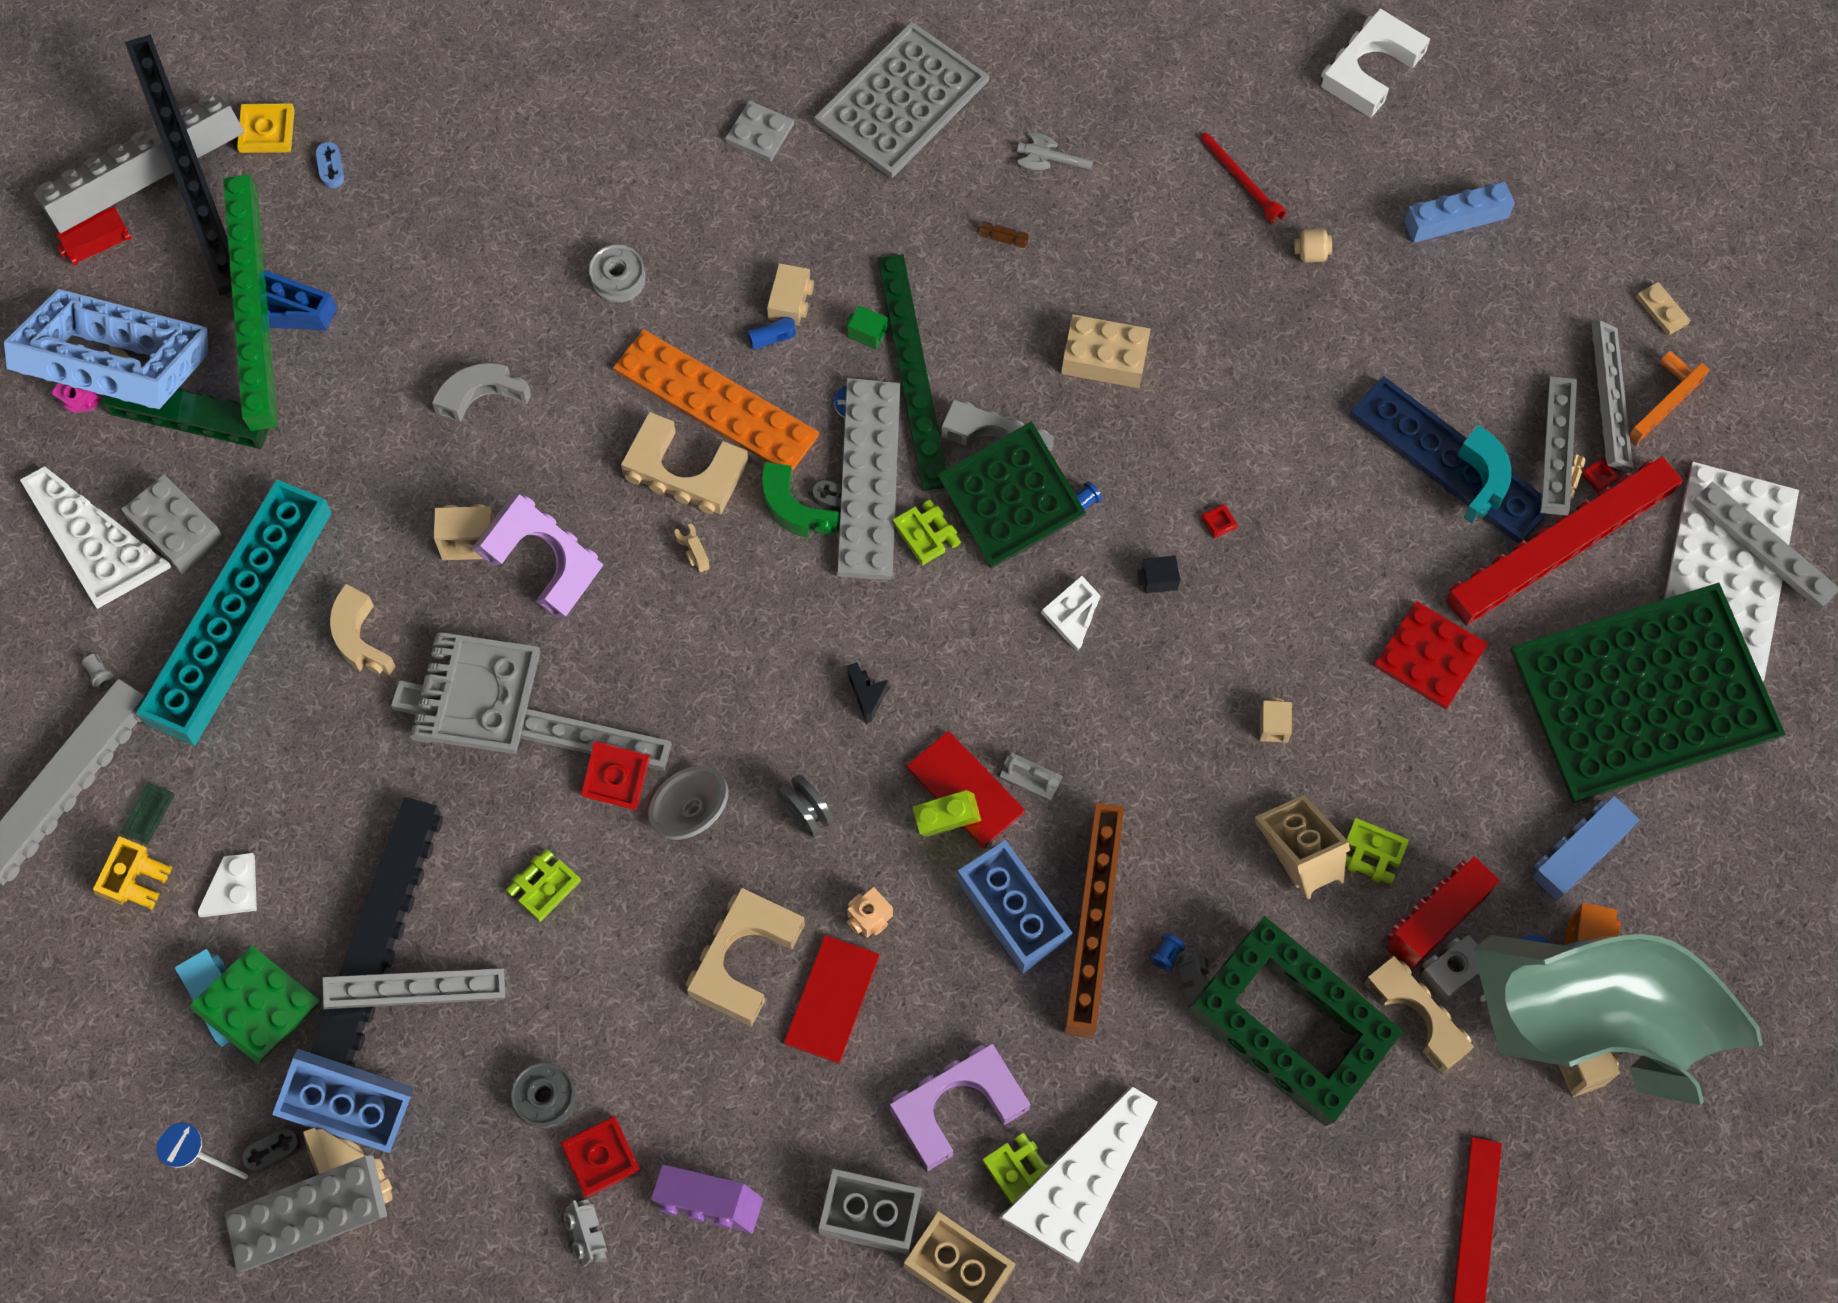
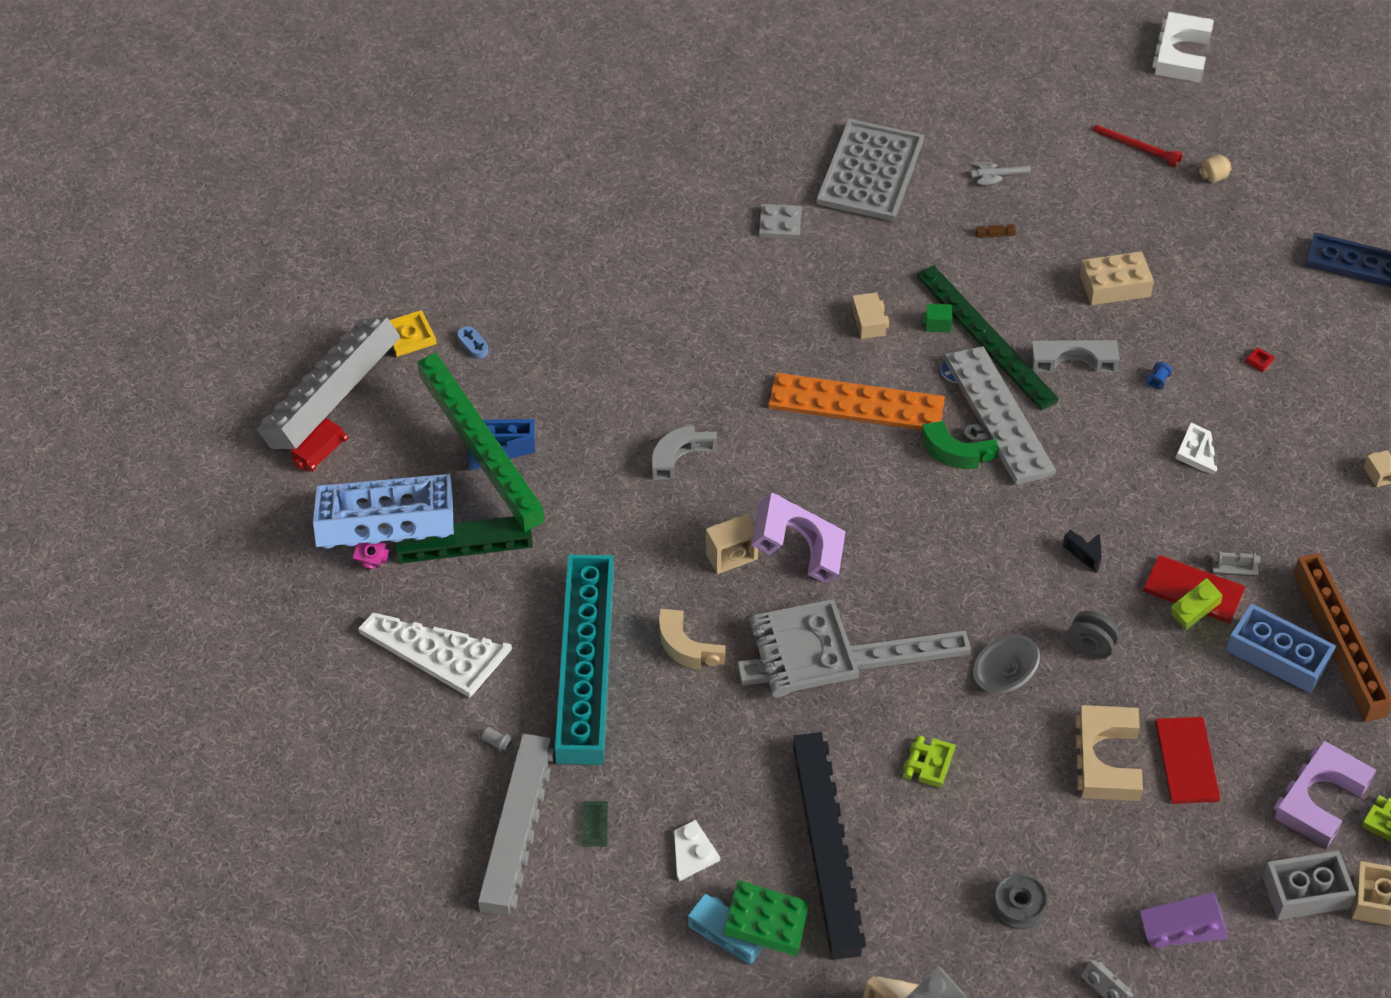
camera: 20 degrees left, 15 degrees down
(119, 874) = (604, 864): yellow brick -> none
(172, 524) = (498, 616): light grey brick -> none
(182, 159) = (378, 365): black brick -> none
(343, 1100) = (878, 952): medium blue brick -> none
(413, 988) = (881, 861): light grey plate -> none
(600, 1156) = (1086, 928): red plate -> none
(615, 775) = (940, 666): red plate -> none
(617, 260) = (735, 342): light grey wheel -> none
(696, 553) = (905, 500): tan plate -> none
(707, 490) = (836, 459): tan arch -> none
(772, 333) = (870, 345): blue bar -> none
(869, 913) = (1181, 690): light nougat brick -> none
(920, 537) = (1060, 438): lime plate -> none
(1011, 494) = (1111, 387): dark green plate -> none
(1159, 574) = (1243, 404): black brick -> none
(1459, 211) = (1299, 117): medium blue brick -> none

